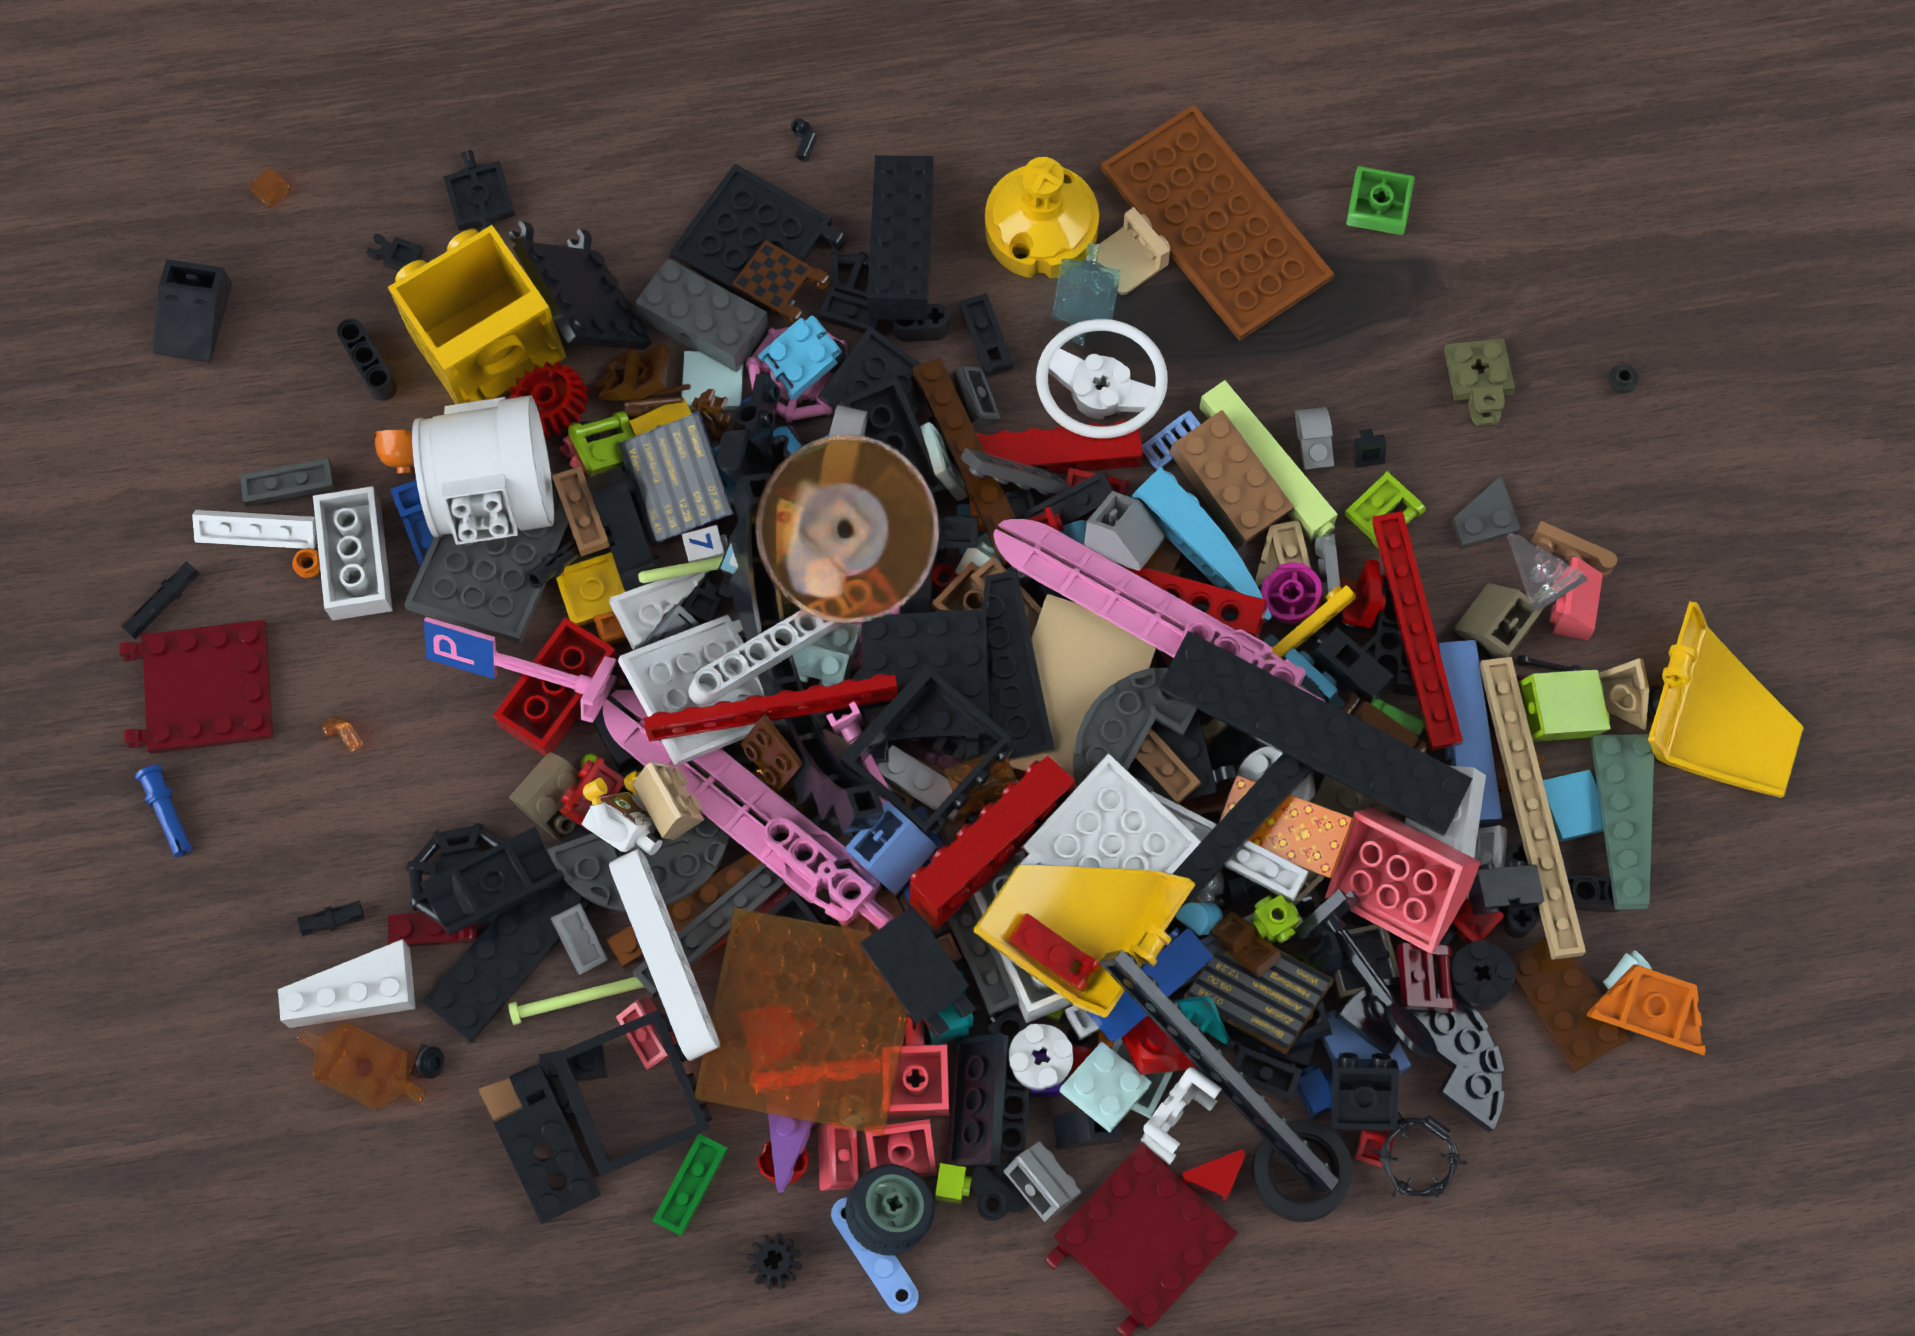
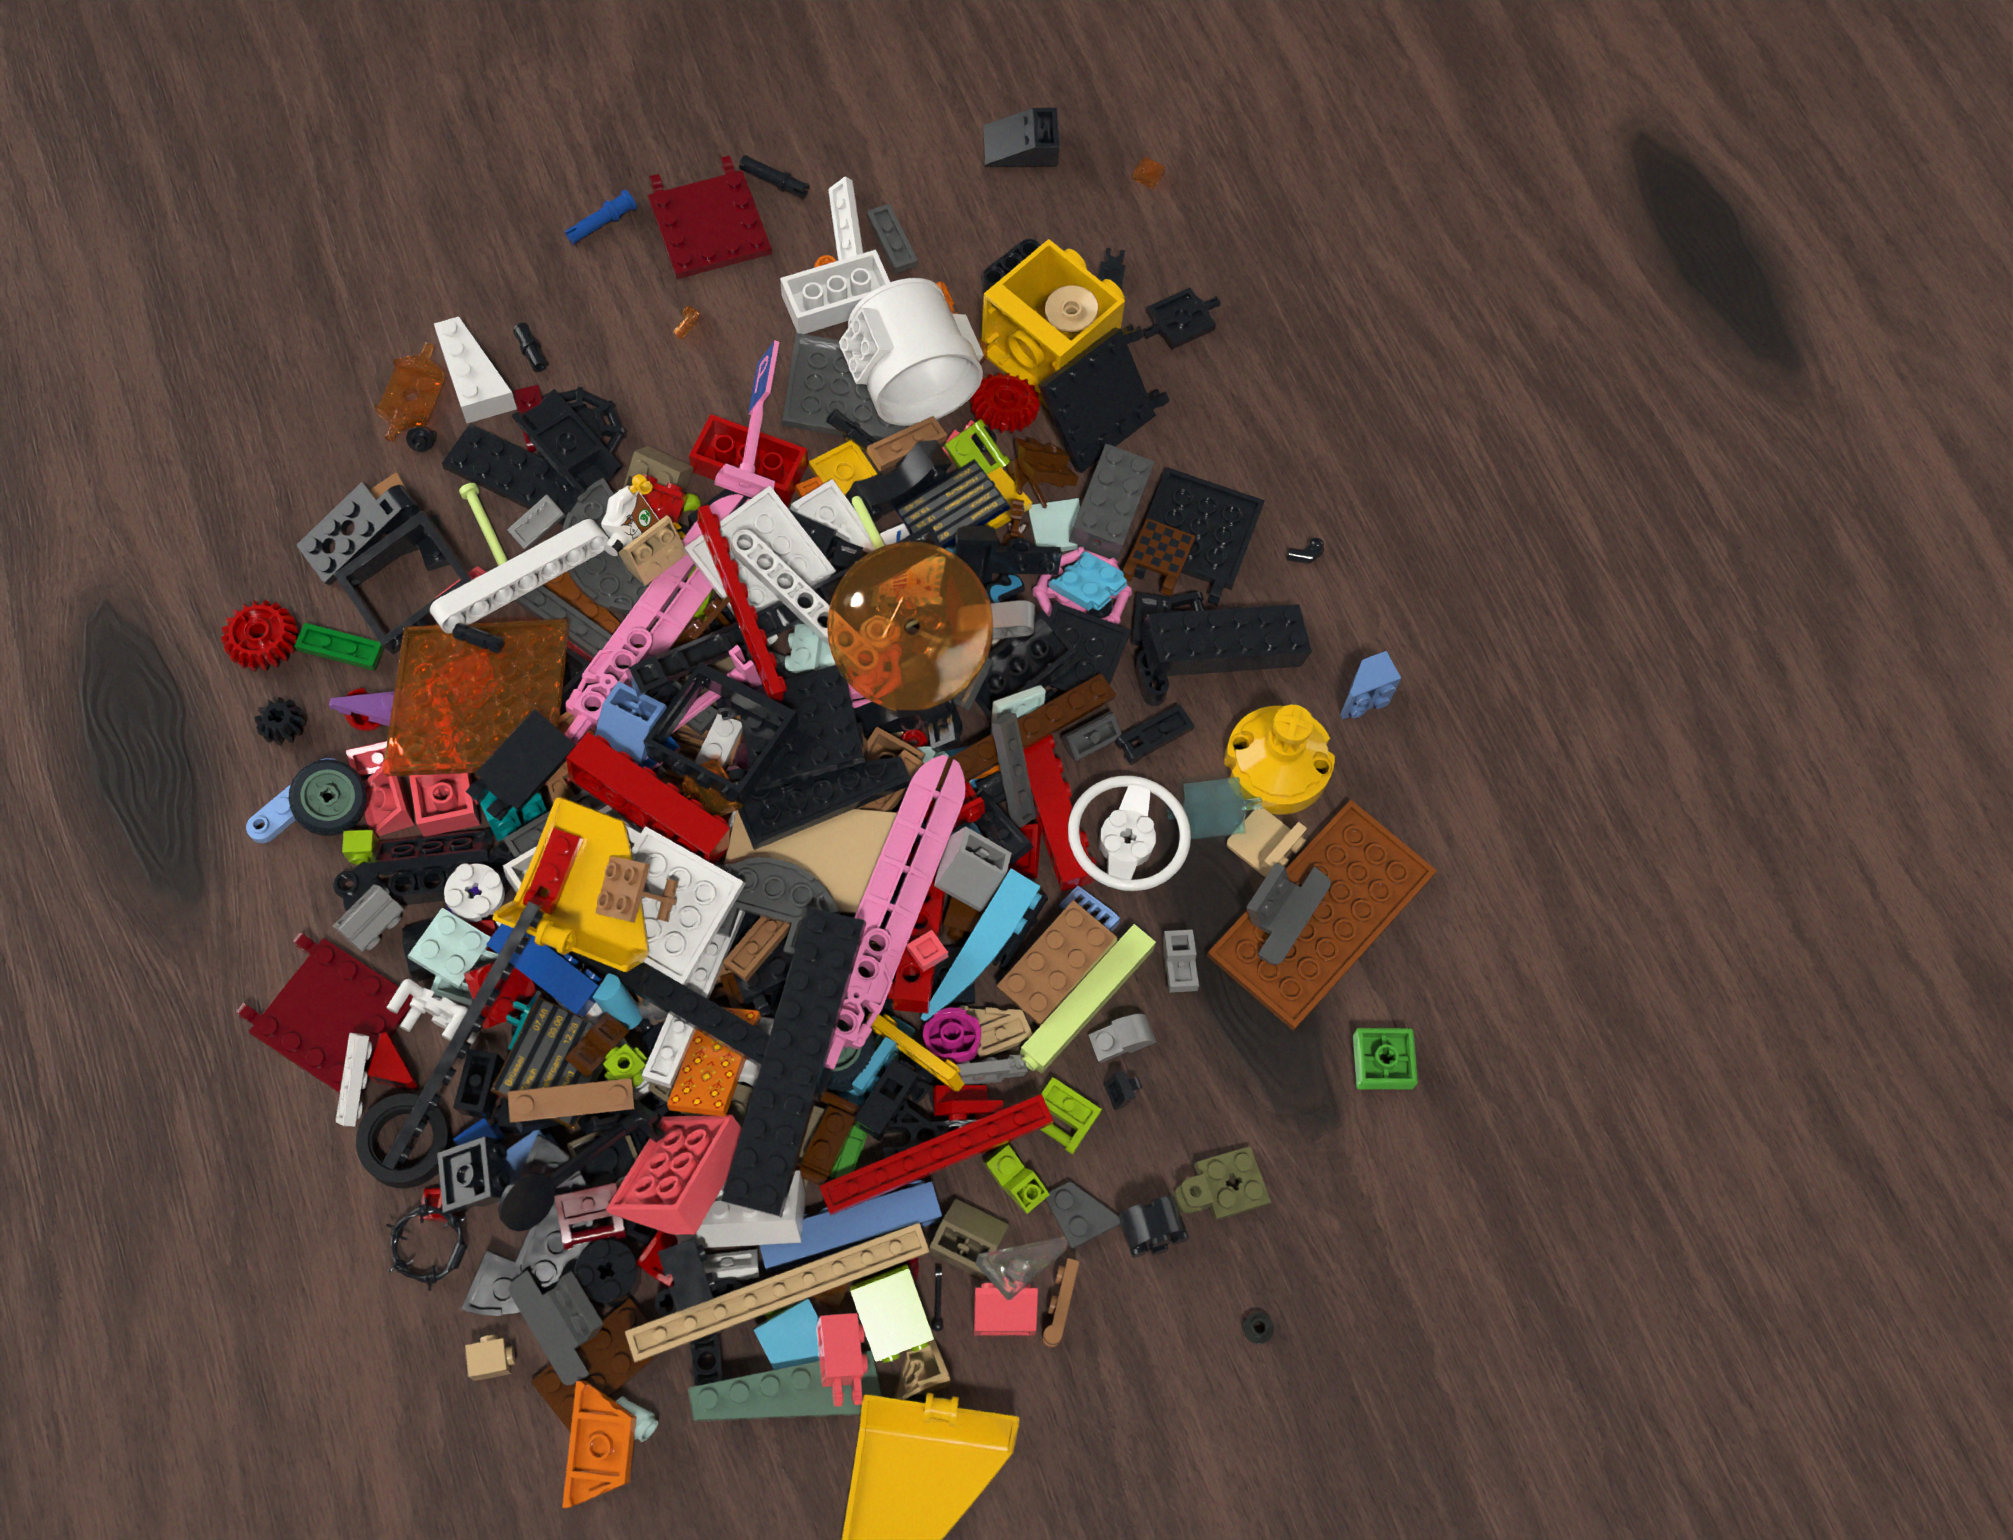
camera: 70 degrees right, 5 degrees down
(485, 269) = (1068, 300): none -> tan dish
(637, 1268) = (242, 630): none -> red gear
(737, 1008) = (478, 637): none -> black axle
(982, 113) = (1371, 686): none -> medium blue slope
(1098, 873) = (624, 889): none -> medium nougat plate
(1213, 250) = (1285, 909): none -> dark grey plate
(1213, 588) = (927, 950): none -> coral plate
(1229, 1214) = (353, 1079): none -> white plate
(1240, 364) = (1179, 960): none -> light grey brick
(1310, 972) = (570, 1100): none -> medium nougat plate
(1447, 565) = (1015, 1179): none -> lime slope
(1517, 445) = (1153, 1226): none -> black brick
(1524, 1028) = (559, 1320): none -> dark grey plate
(1547, 1107) = (489, 1358): none -> tan brick
(1605, 757) = (841, 1355): none -> coral hinge

